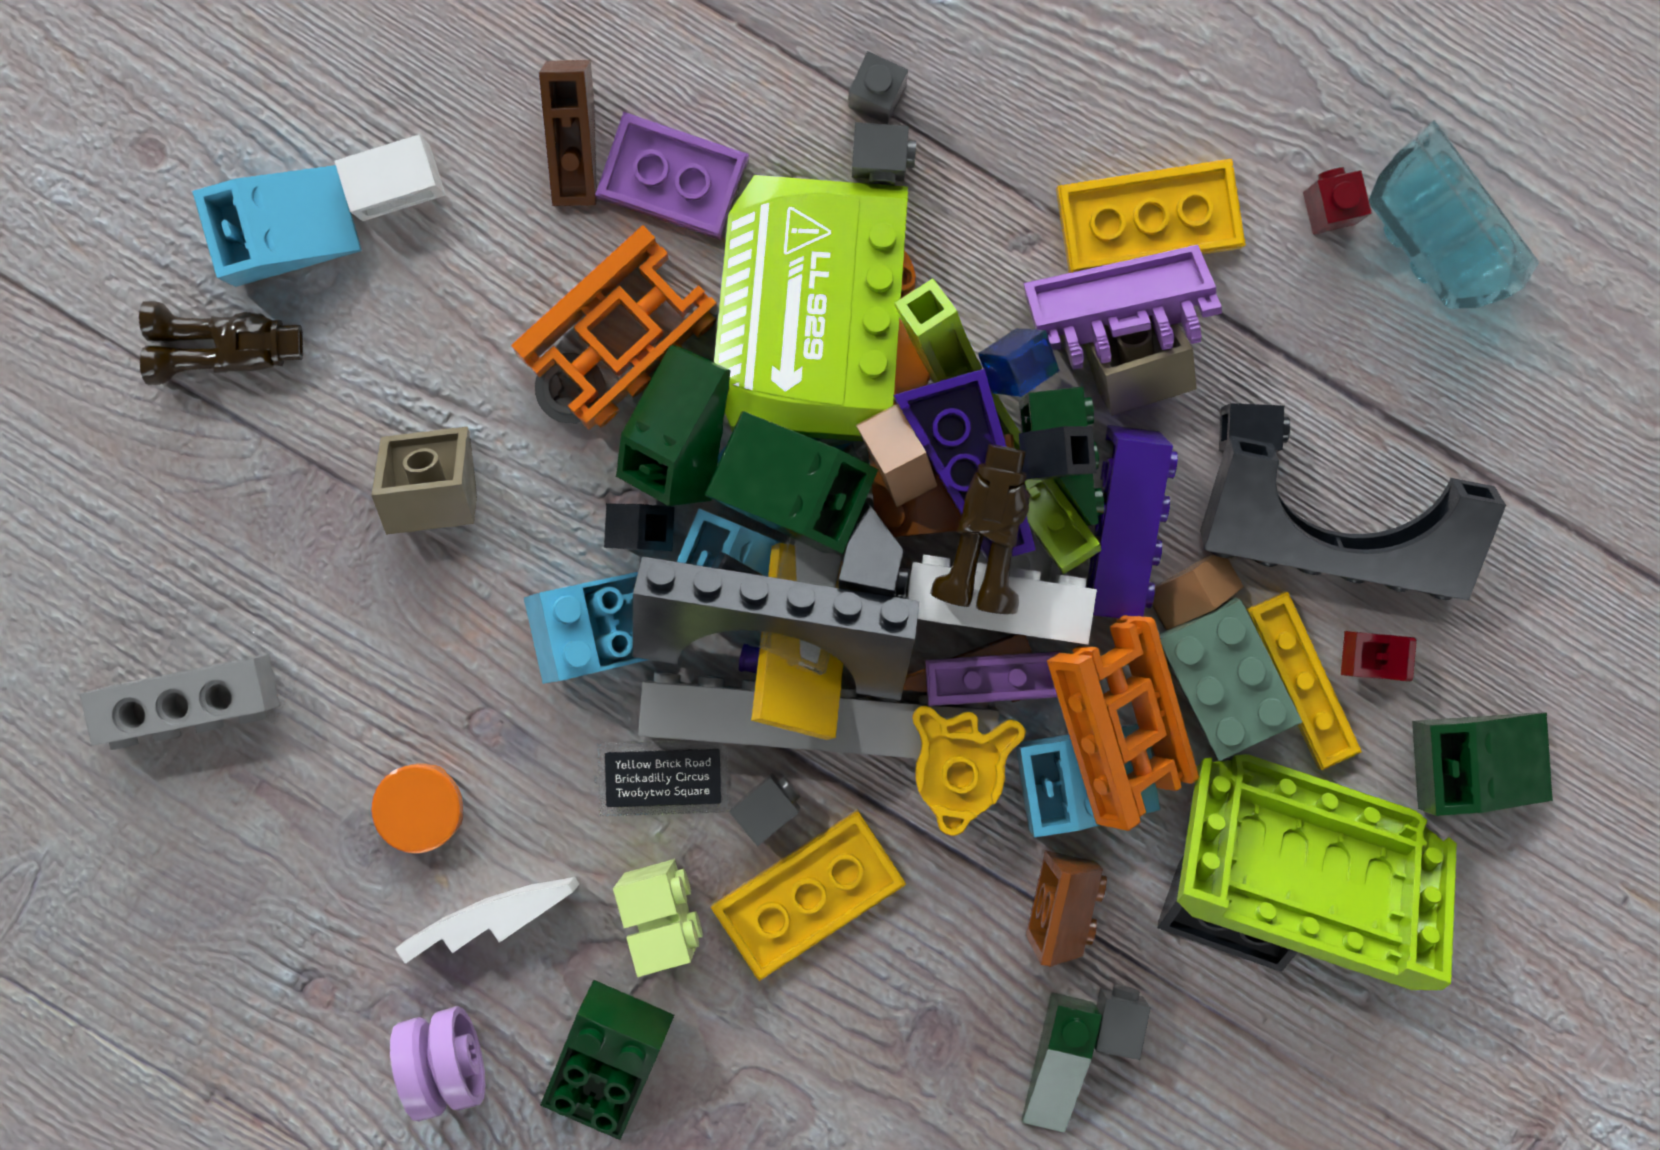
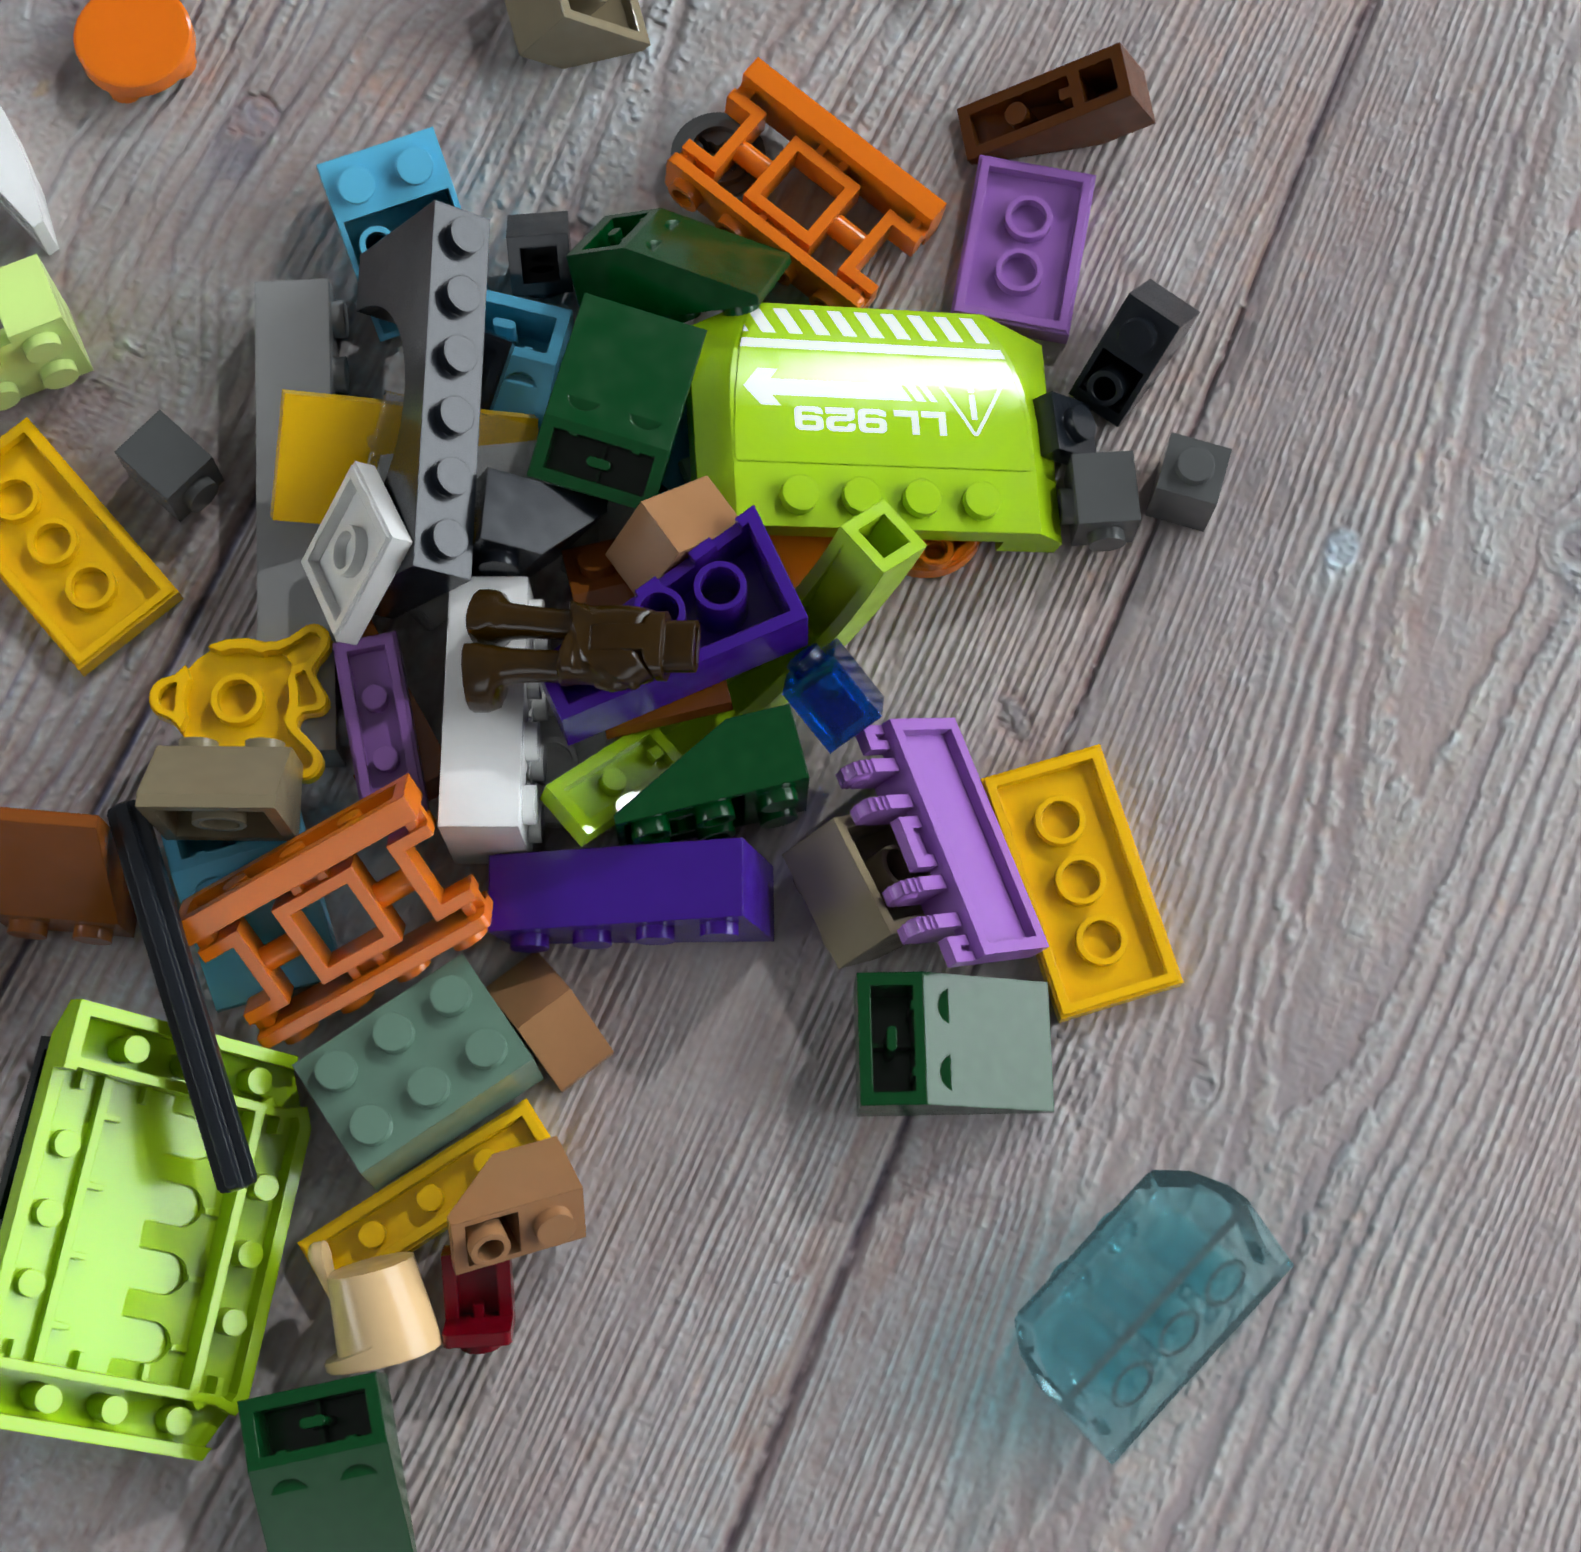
camera: 75 degrees right, 15 degrees down
(662, 777) = (203, 338): black piece -> none
(770, 107) = (1133, 351): none -> black slope
(824, 168) = (1064, 427): none -> black plate
(880, 680) = (356, 552): none -> white tile
(1039, 788) = (223, 790): none -> dark tan slope
(1058, 452) = (704, 734): black brick -> none
(1175, 828) = (182, 999): none -> black axle
(1254, 422) = (792, 1064): black brick -> none
(1262, 325) = (951, 1045): none -> slope
(1330, 621) = (516, 1207): none -> medium nougat slope
(1337, 200) = (1148, 1136): dark red brick -> none
(1385, 721) = (376, 1310): none -> tan hat
(1430, 554) = (637, 1342): black arch -> none

